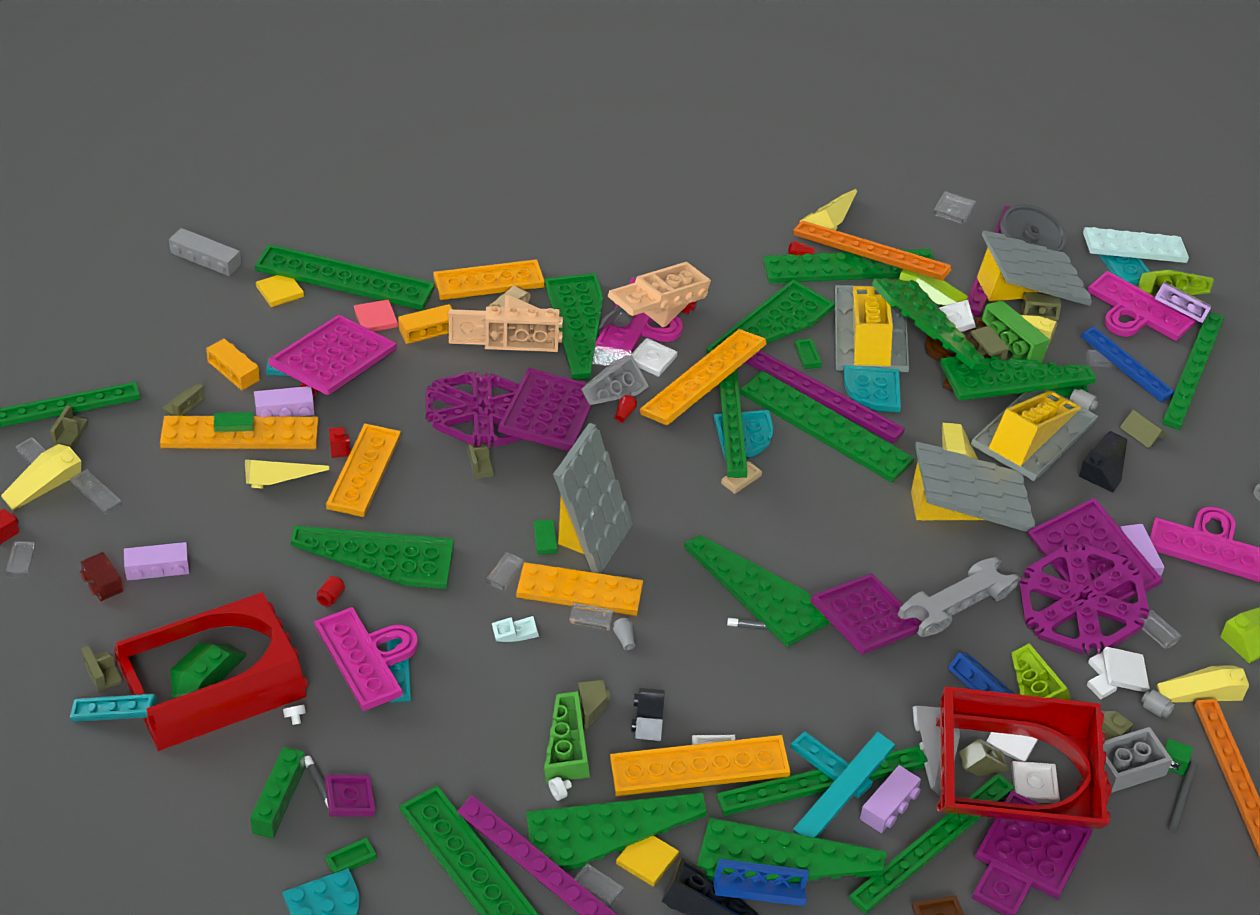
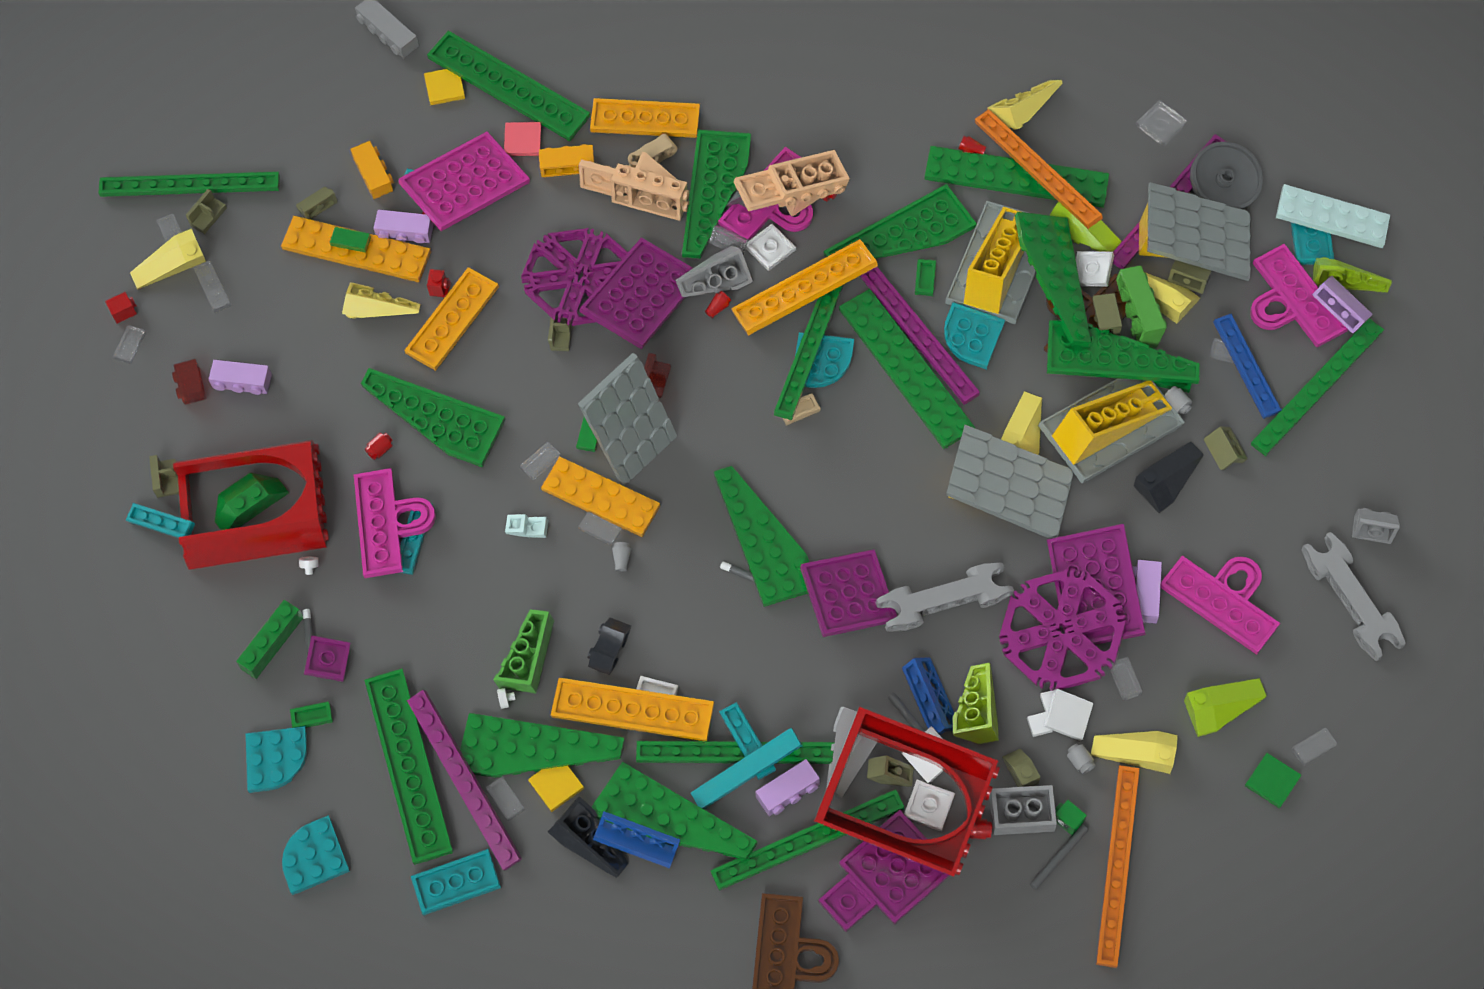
camera: 25 degrees right, 20 degrees up
(592, 700) = (565, 619): olive slope -> none

